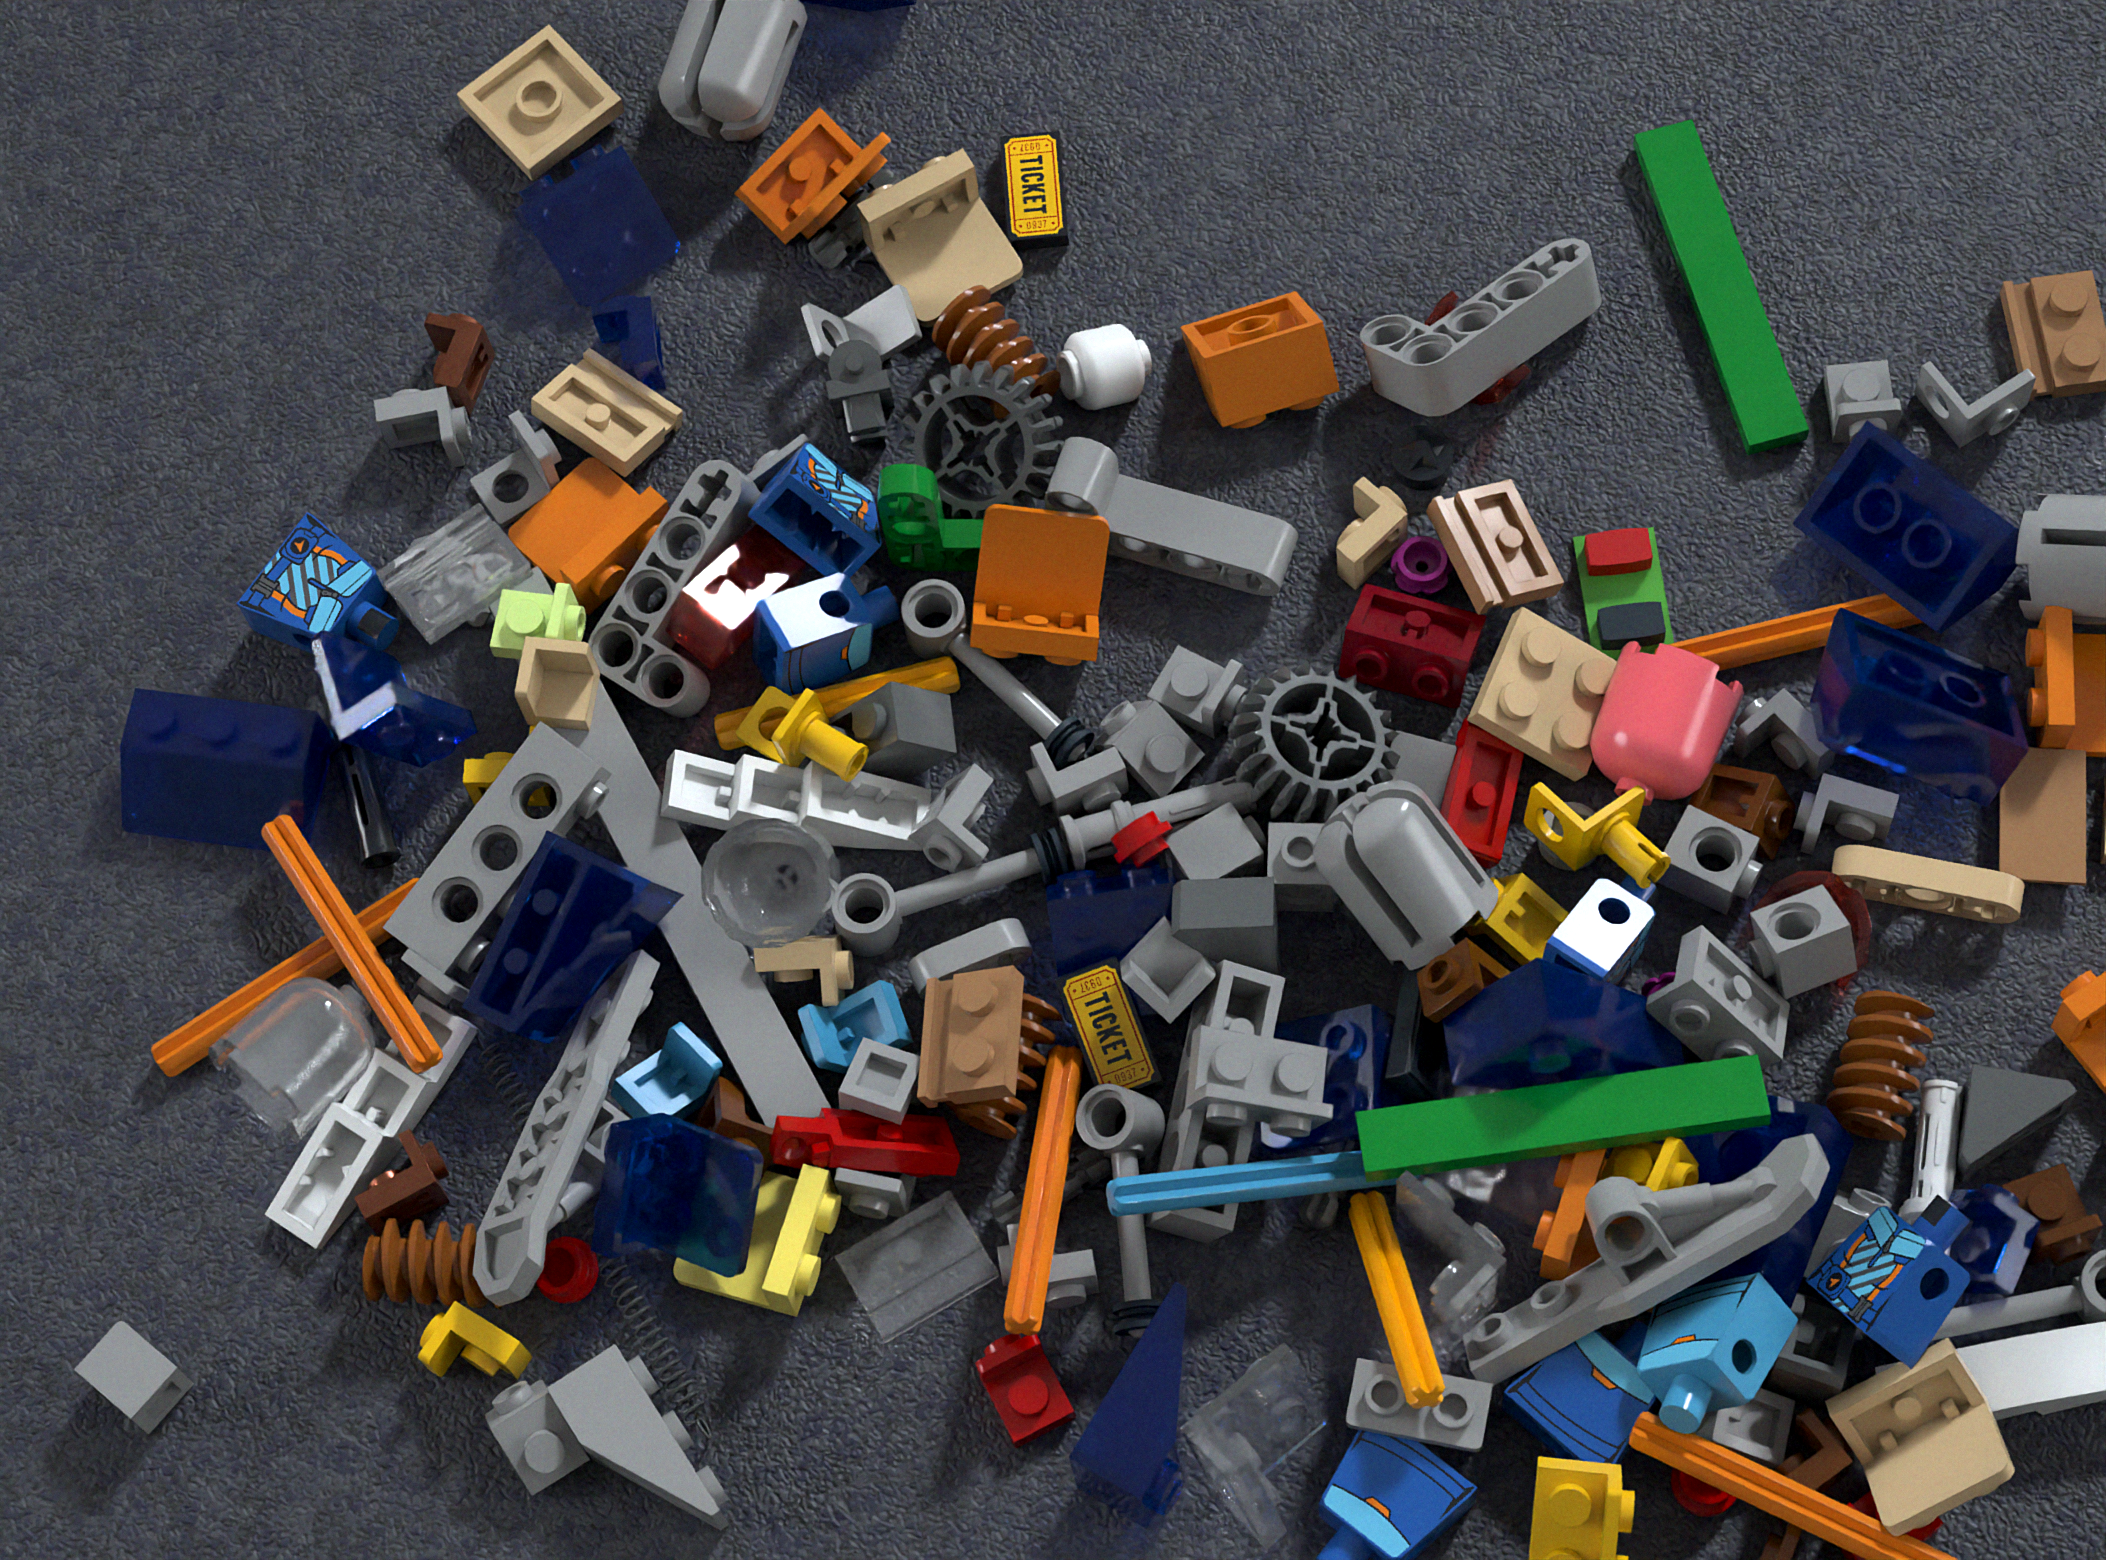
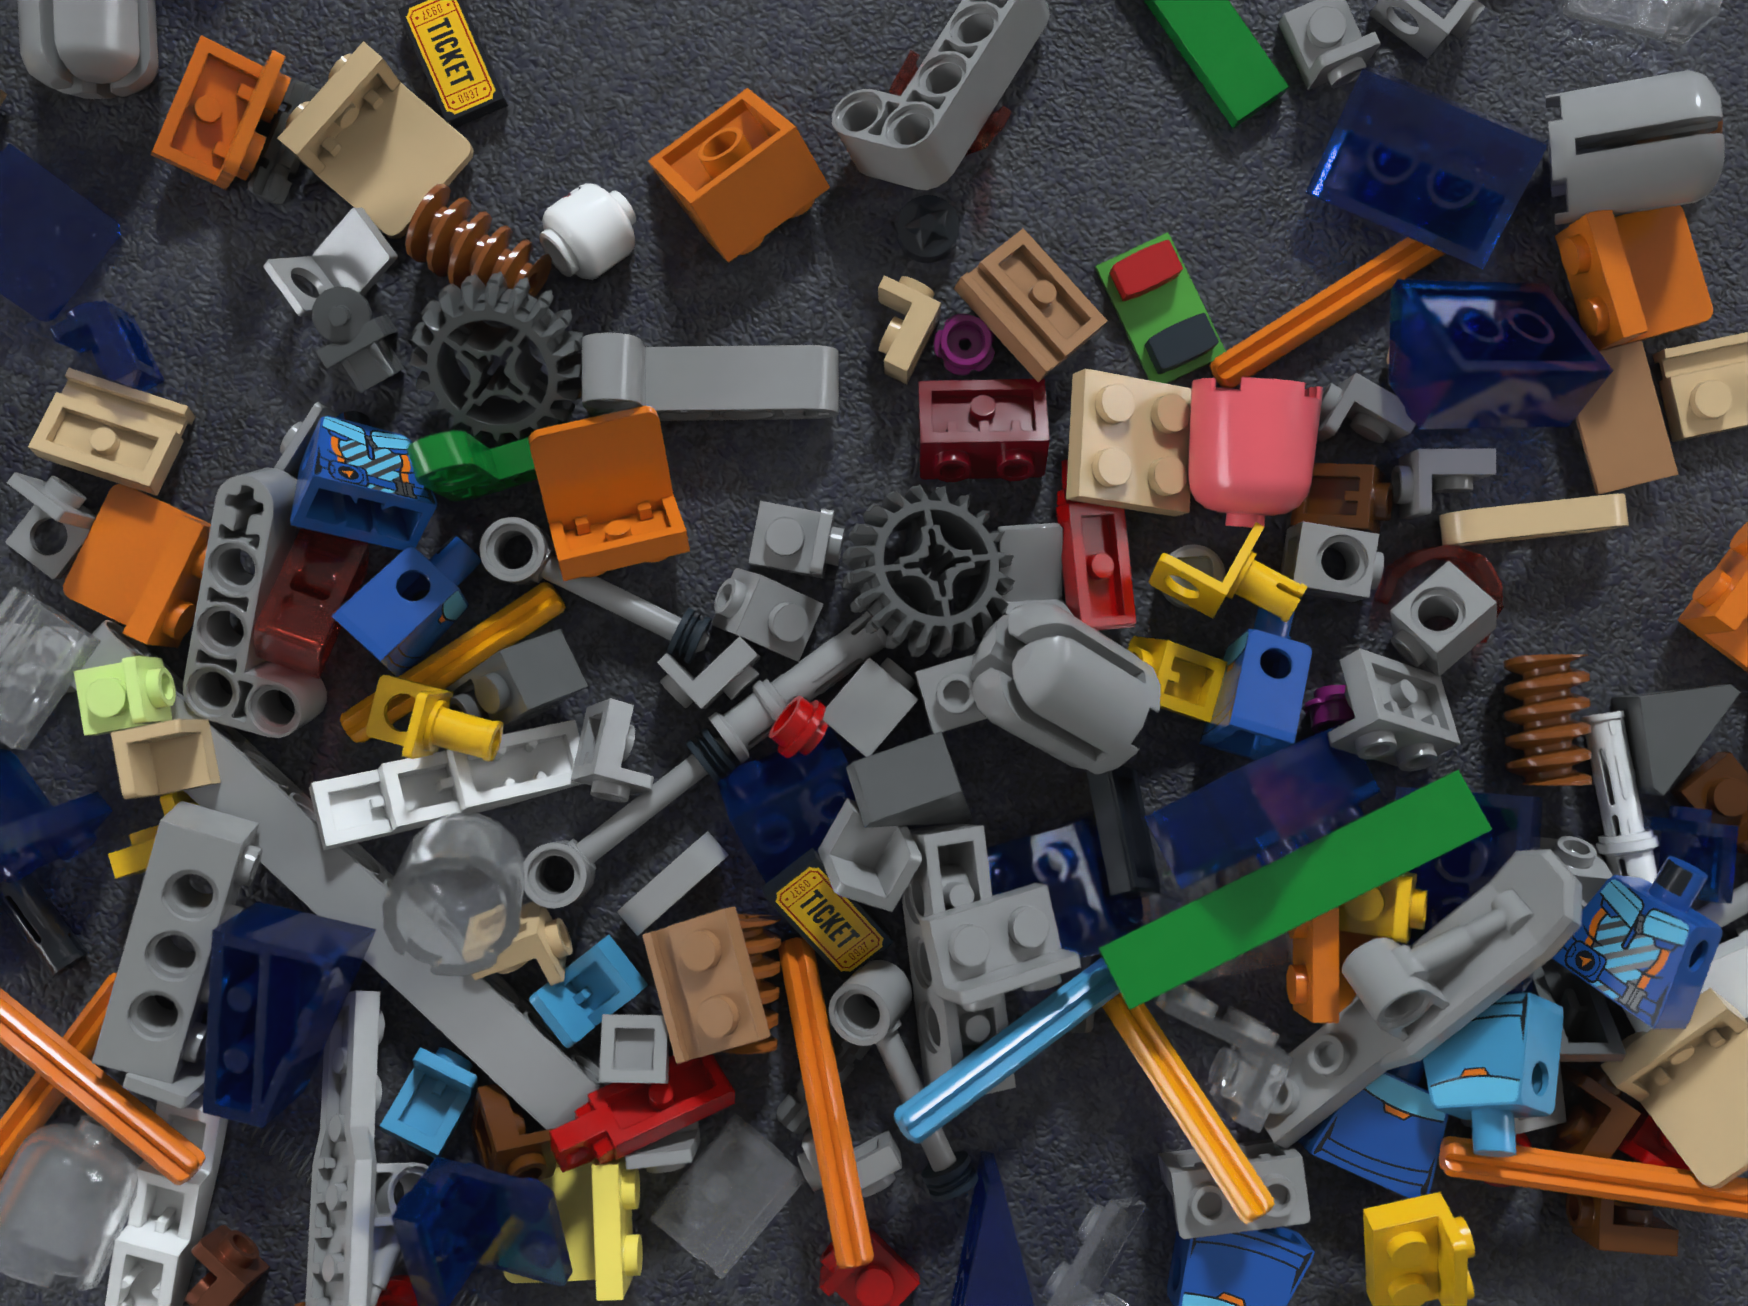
camera: 30 degrees left, 20 degrees up
(1456, 978) = (1154, 781): reddish brown bracket -> none

